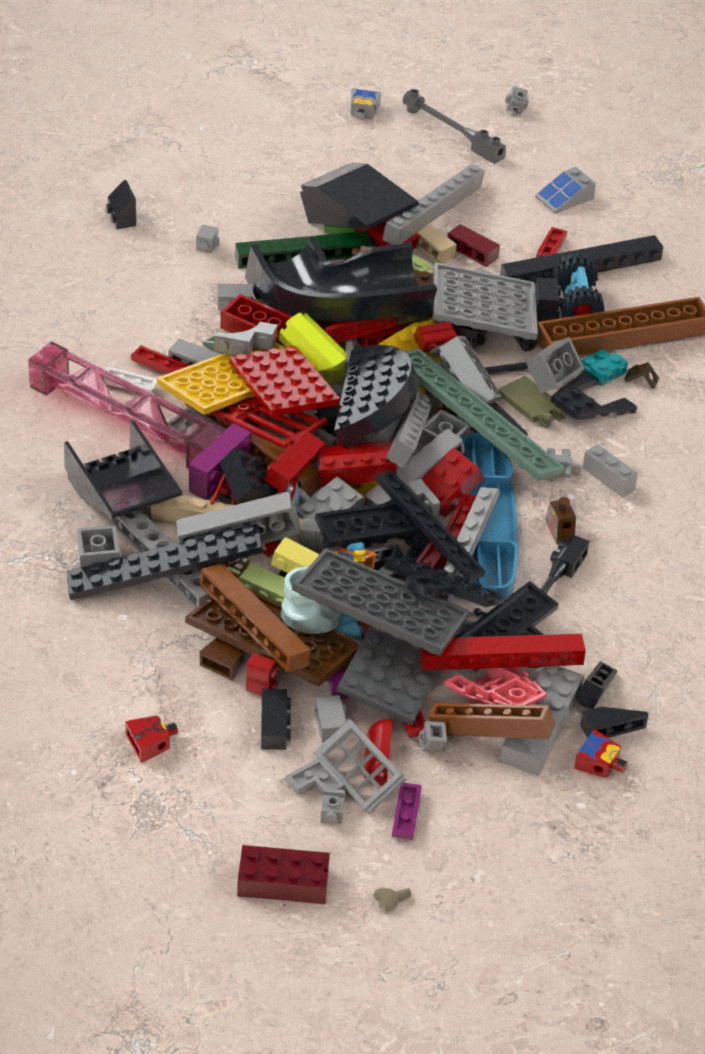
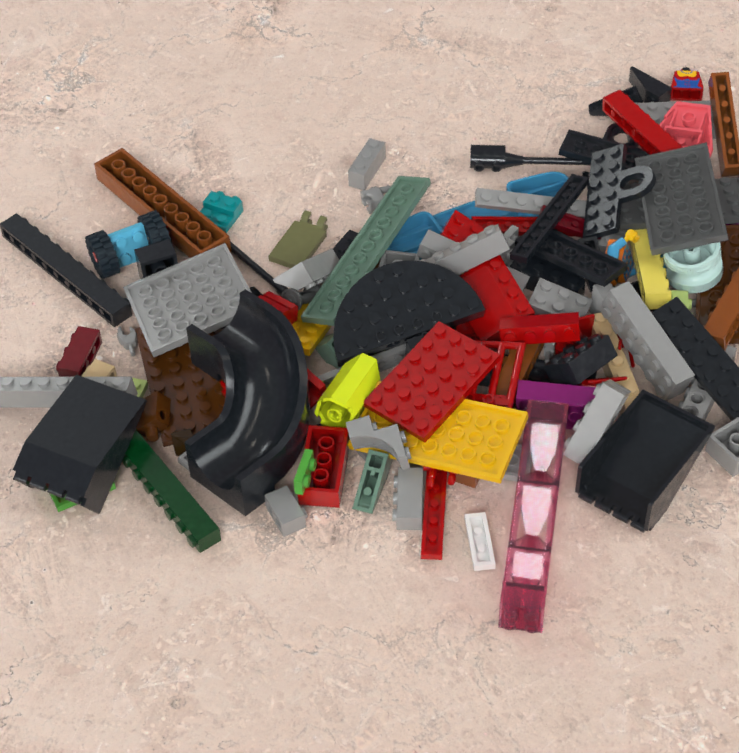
camera: 110 degrees left, 5 degrees up
(122, 206) = (182, 684): black slope -> none
(173, 449) = (597, 420): none -> light grey brick
(207, 238) = (193, 581): light grey brick -> none
(247, 293) = (303, 477): none -> bright green plate
(552, 242) = (43, 300): red plate -> none
(555, 365) = (259, 224): light grey brick -> none
(561, 519) = (454, 170): reddish brown torso -> none
(580, 406) = (292, 206): black wing -> none
(642, 370) = (217, 183): dark brown bracket -> none

